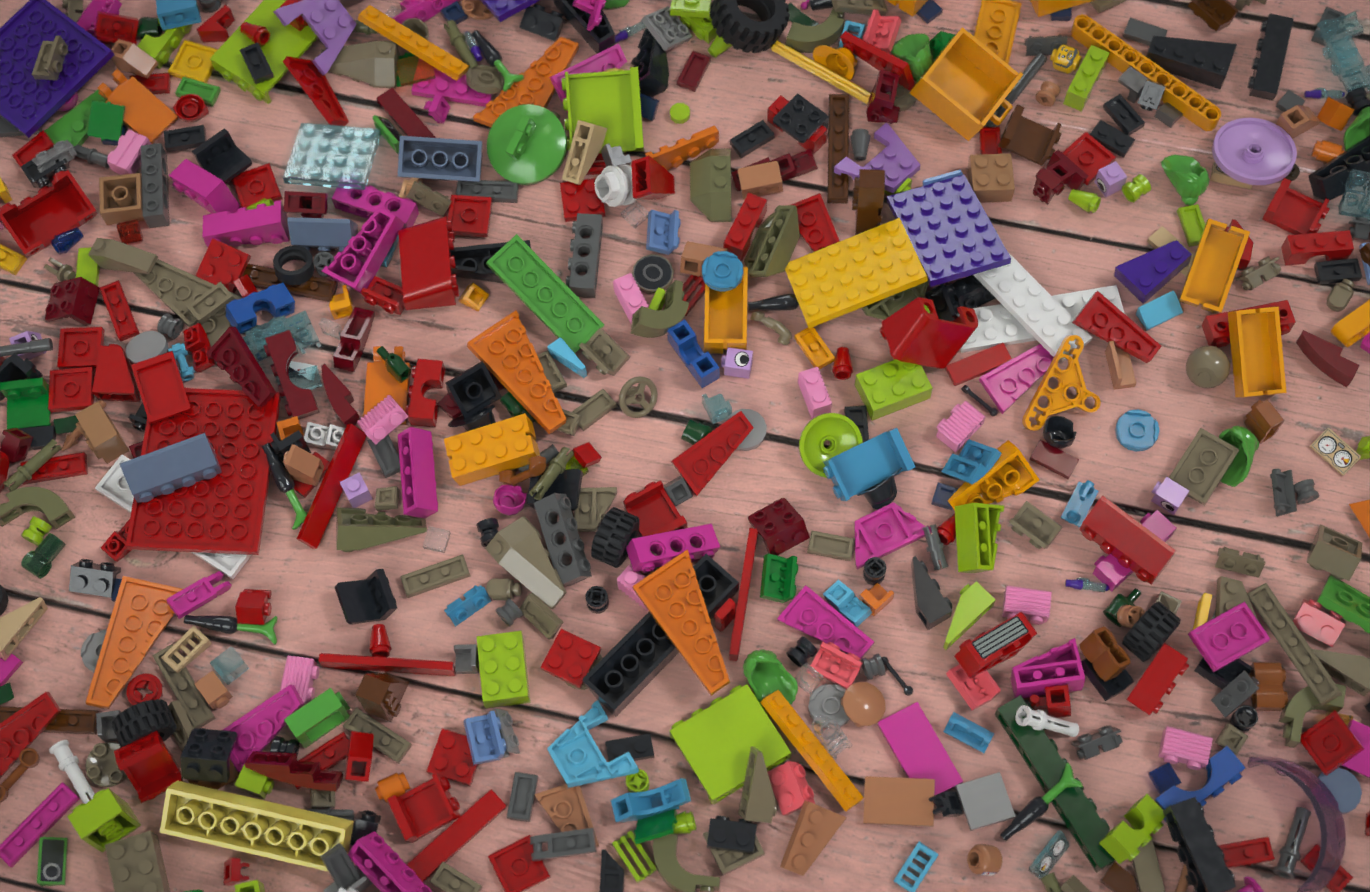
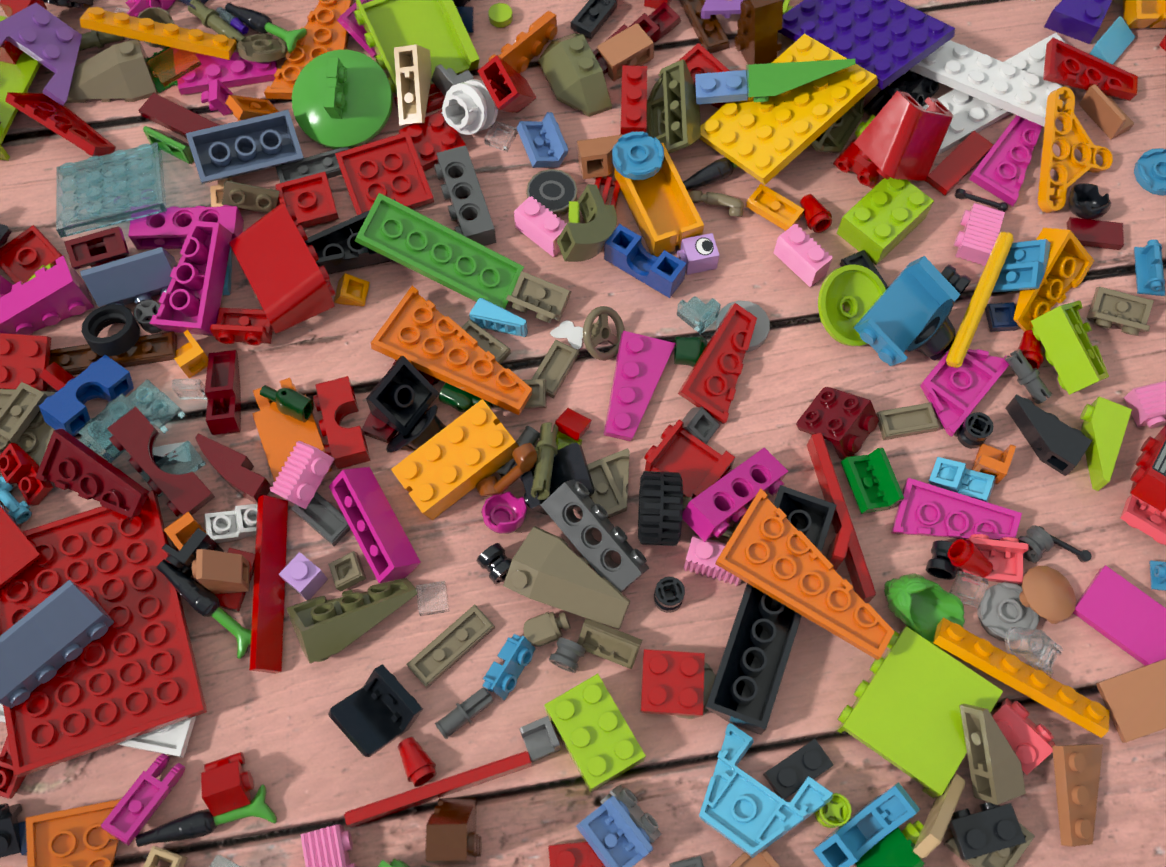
camera: 25 degrees left, 0 degrees up
(424, 623) = (464, 712): none -> dark grey axle
(458, 128) = (249, 107): none -> orange slope
(533, 216) = (385, 168): none -> red plate
(614, 384) = (568, 331): none -> white sticker
(648, 437) = (634, 381): none -> dark pink wing
(702, 810) = (939, 817): none -> tan tile
(814, 238) = (721, 87): none -> medium blue bracket
(814, 655) = (969, 558): none -> red cone
(851, 247) = (777, 78): none -> bright green wedge
(919, 456) = (958, 282): none -> black wheel
(928, 475) = (979, 300): none -> yellow axle

